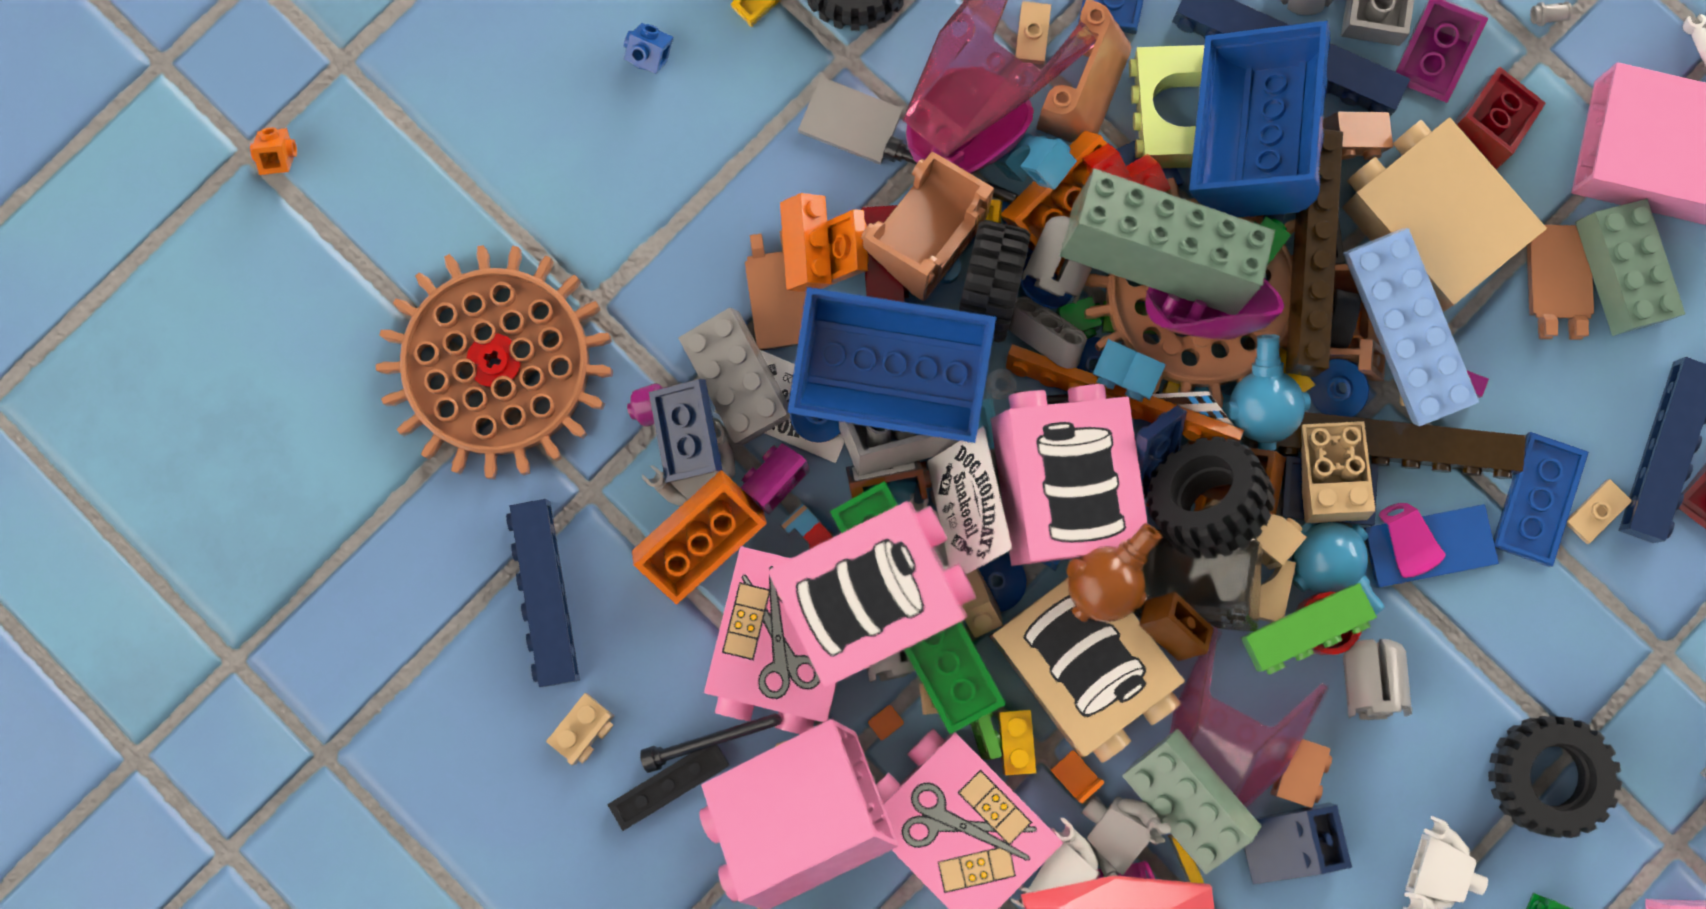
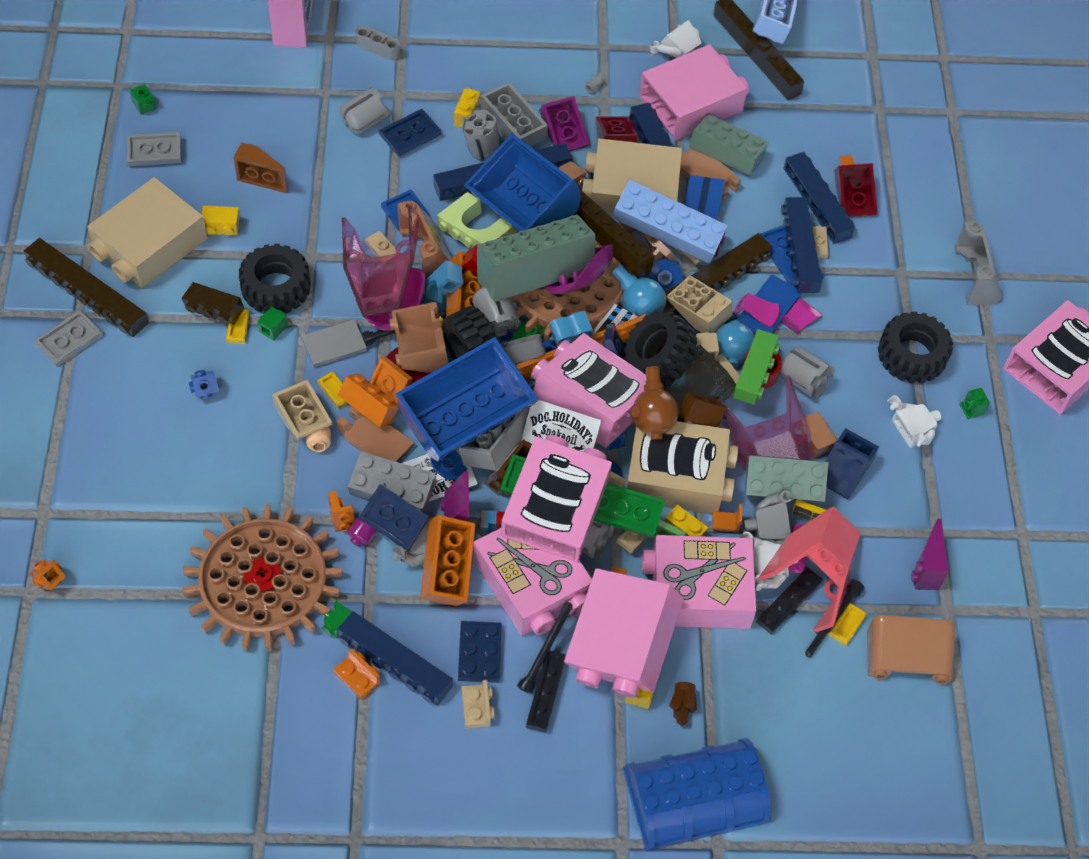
camera: 55 degrees left, 25 degrees down
(490, 573) = (358, 674): none -> orange bracket
(524, 488) = (335, 618): none -> green brick
(638, 357) = (341, 515): none -> orange bracket
(644, 669) = (479, 651): none -> dark blue plate
(712, 237) = (319, 440): none -> light nougat head
(719, 188) = (301, 409): none -> tan slope
(794, 178) = (331, 386): none -> yellow tile
(802, 29) = (272, 323): none -> green brick
(1462, 594) = (800, 316): none -> dark pink piece
(1503, 323) = (705, 195): none -> blue tile
(1548, 154) = (648, 126): none -> dark blue brick
(1565, 502) = (801, 245): none -> dark blue brick

